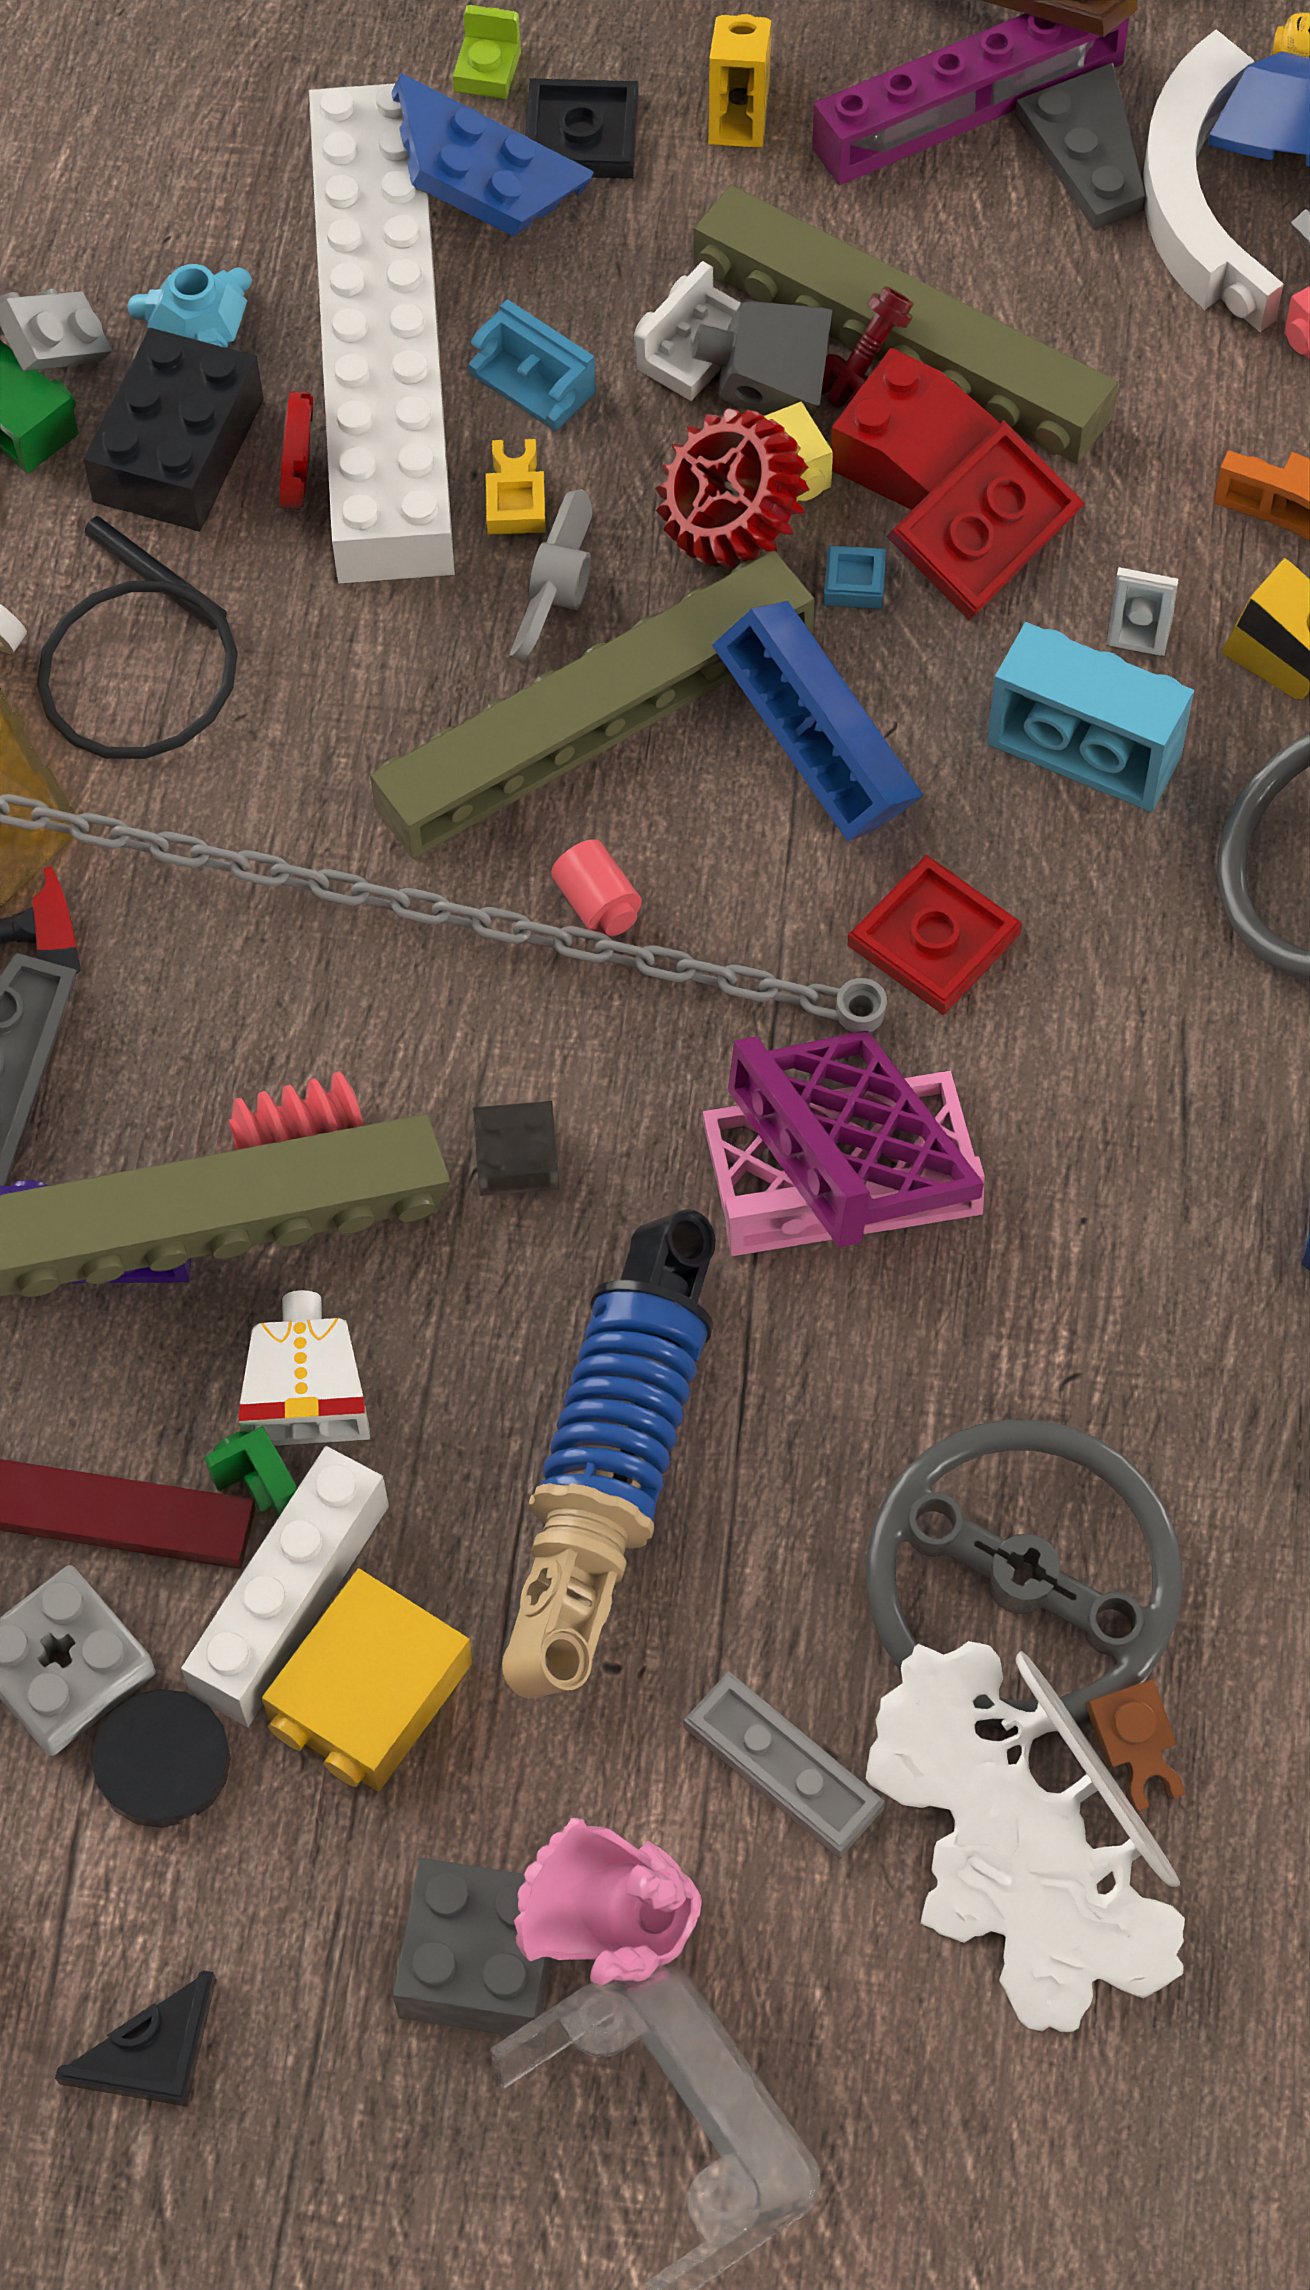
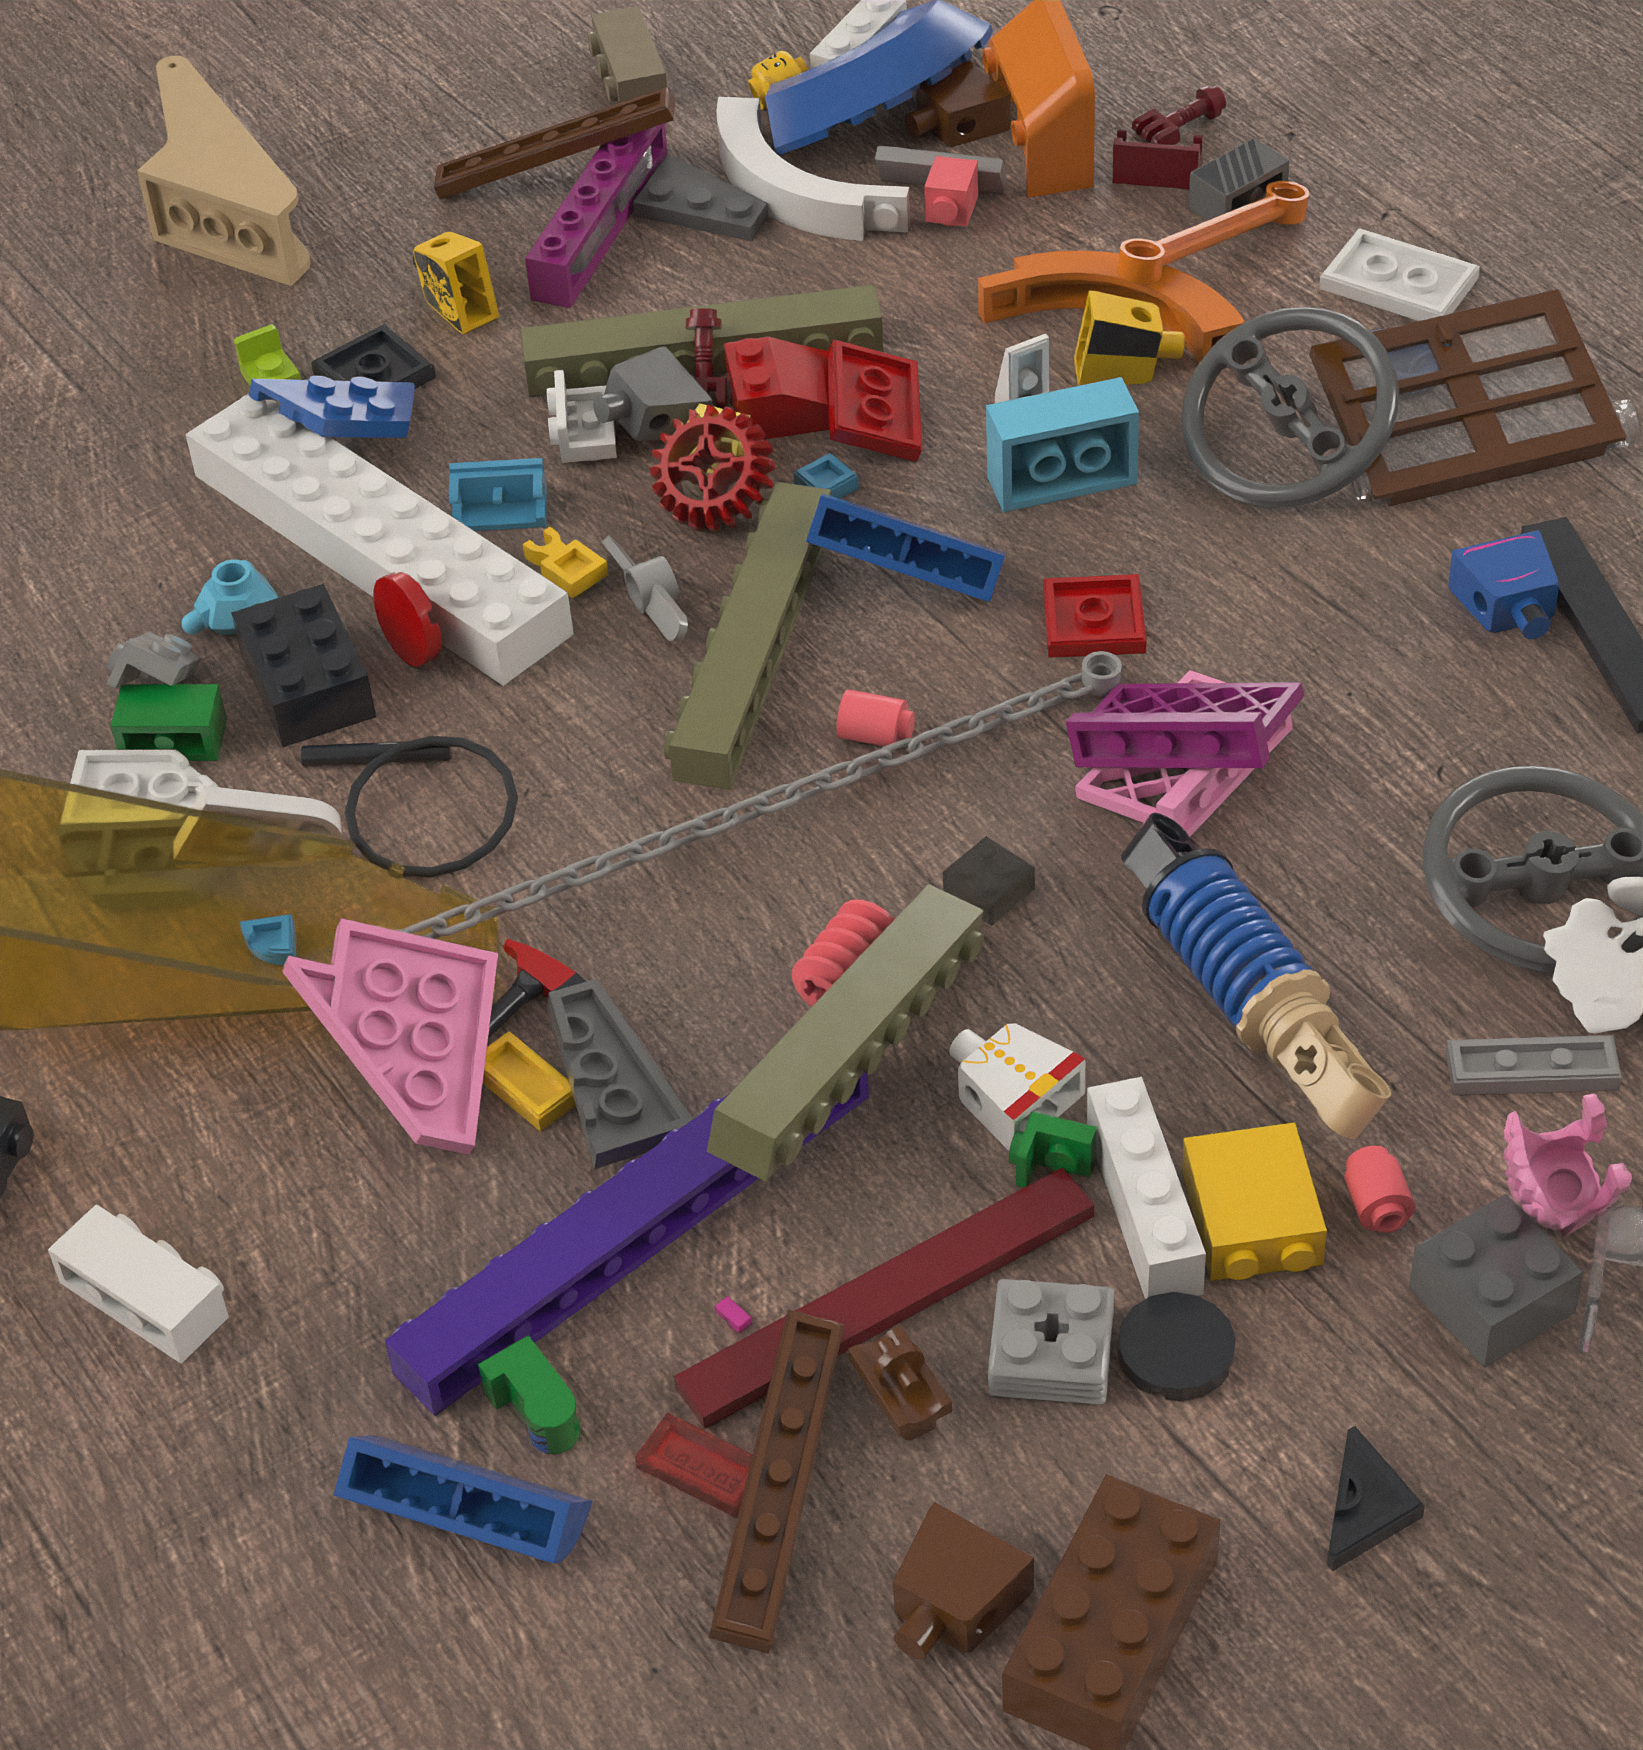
camera: 40 degrees left, 15 degrees down
(487, 1767) = (1378, 1189): none -> coral brick

